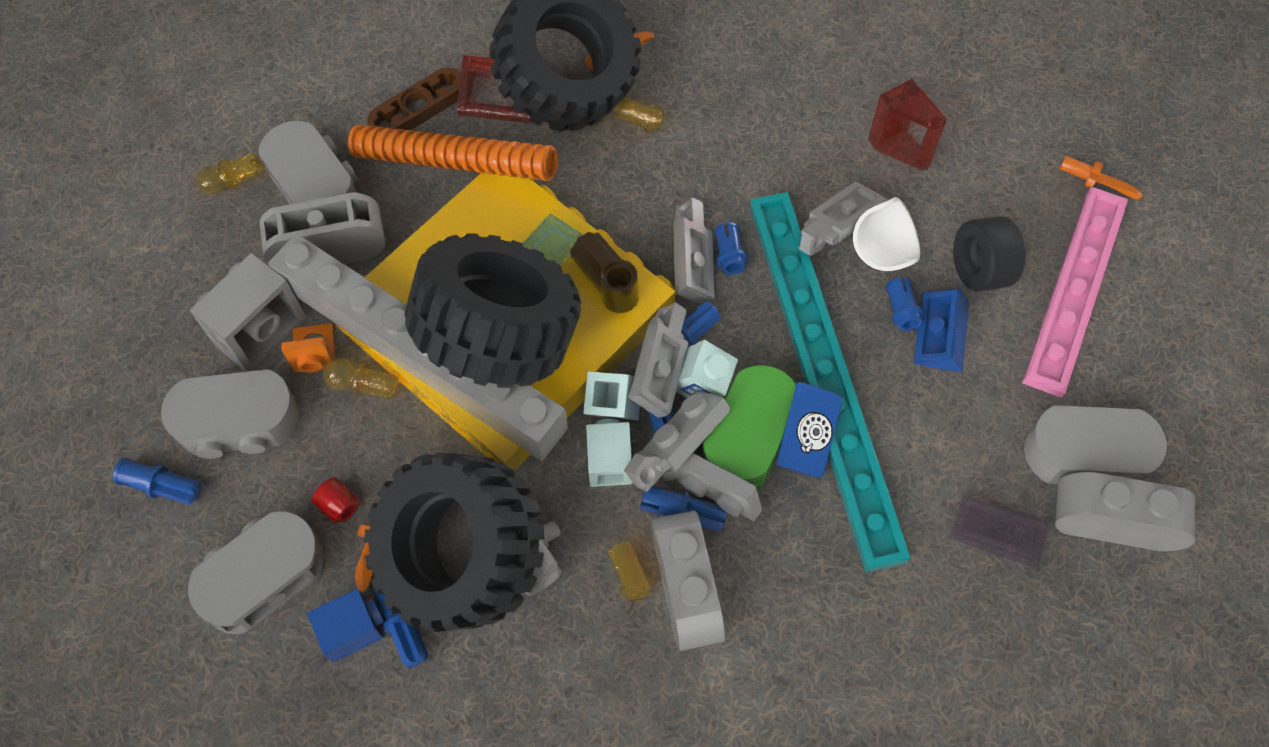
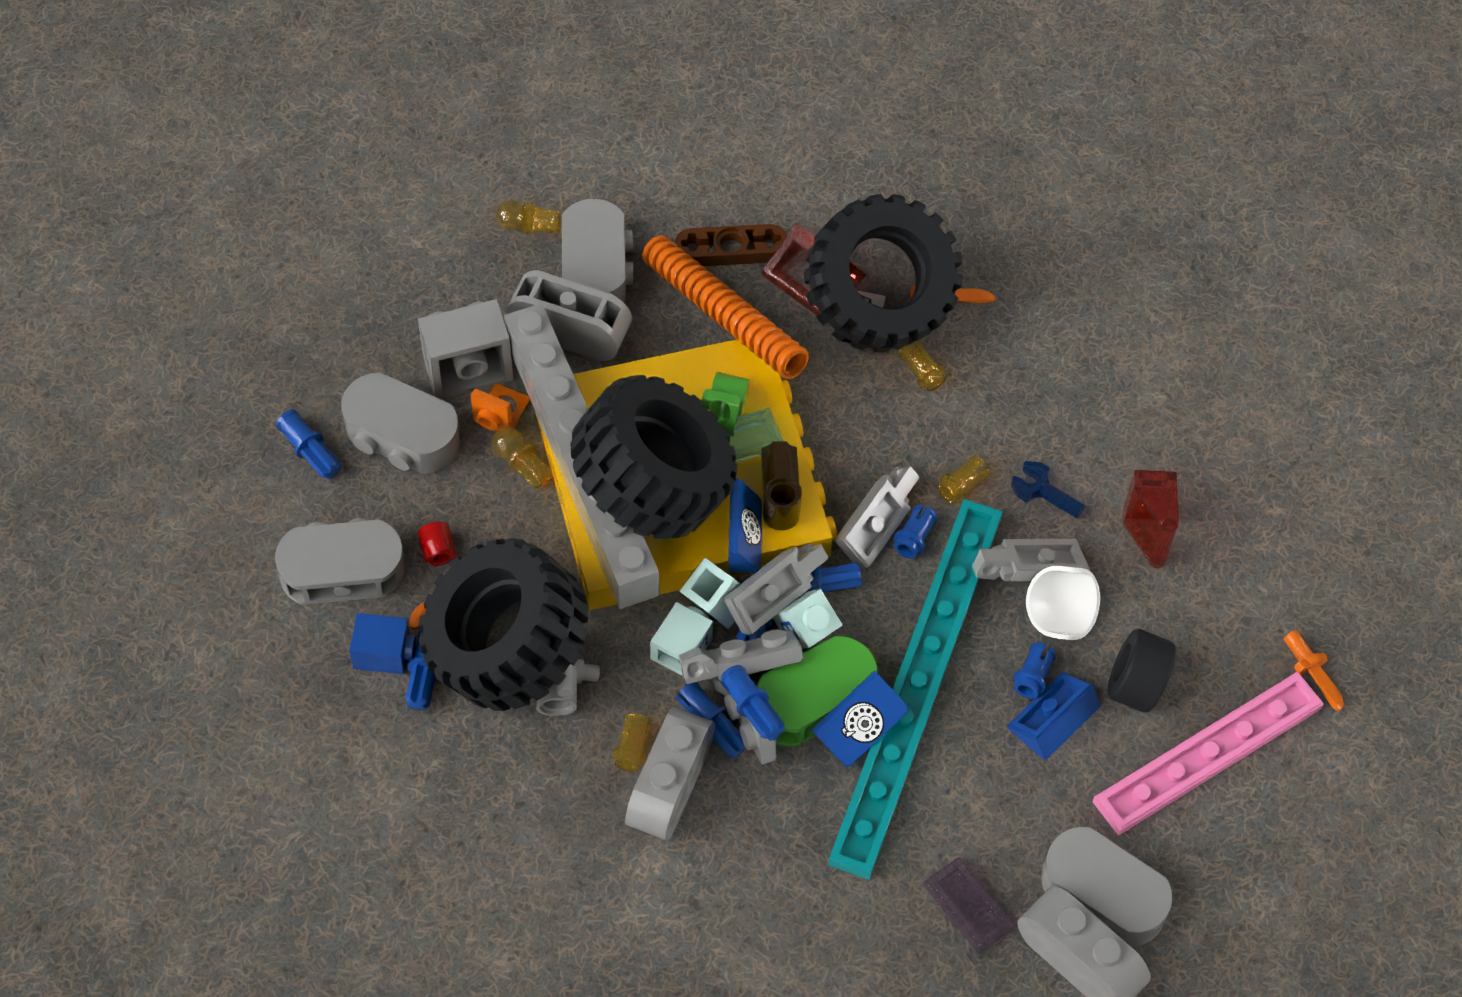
camera: 30 degrees right, 5 degrees down
(512, 223) = (726, 399): none -> bright green leg
(604, 331) = (744, 529): none -> blue slope
(722, 474) = (752, 702): none -> blue axle
(734, 193) = (956, 485): none -> clear yellow pin
(800, 157) = (1044, 489): none -> clear blue bar

